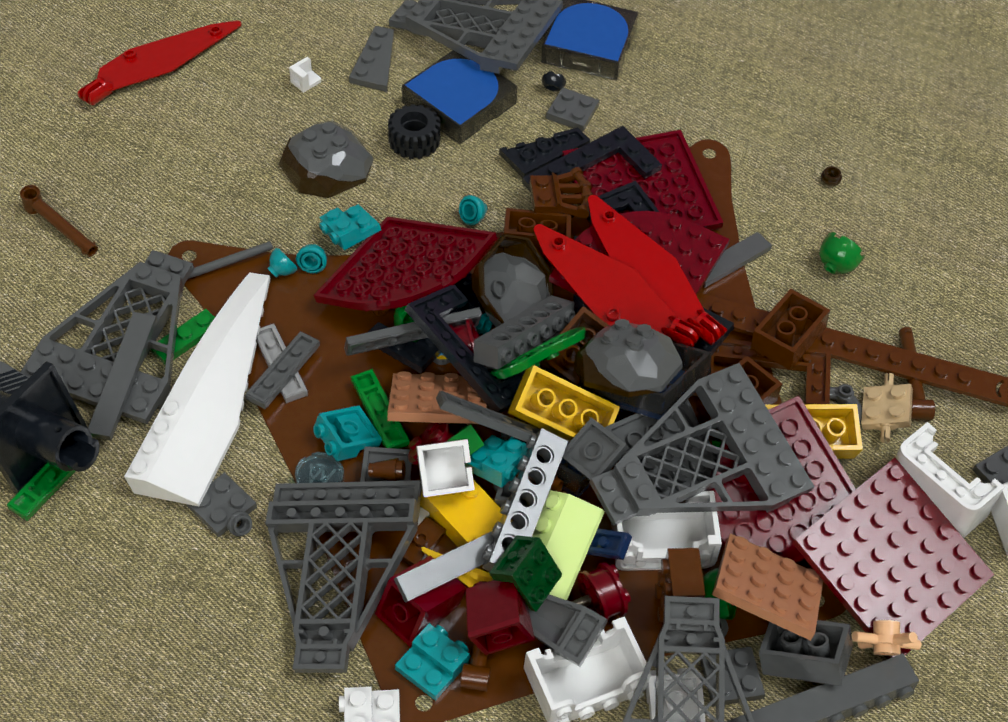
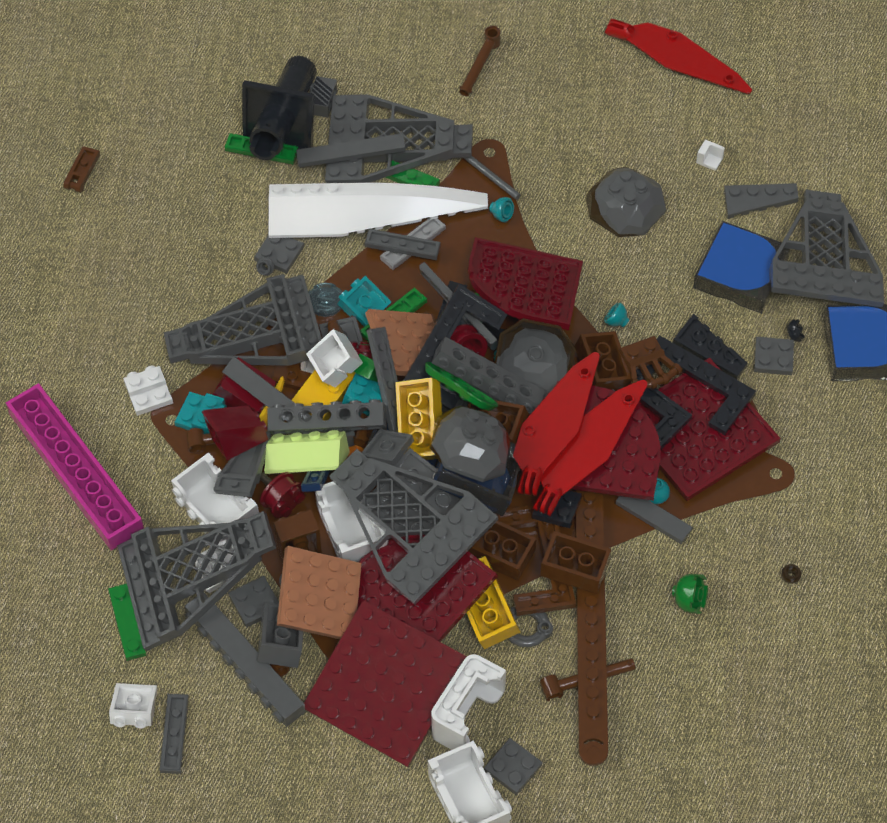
camera: 75 degrees right, 5 degrees up
(311, 258) = (516, 225): teal brick -> none
(348, 226) = (558, 238): teal plate -> none
(414, 131) = (680, 236): black tyre -> none
(529, 568) = (266, 433): dark green bracket -> none
(886, 639) = (307, 686): light nougat bar -> none
(887, 407) = (540, 659): tan plate -> none

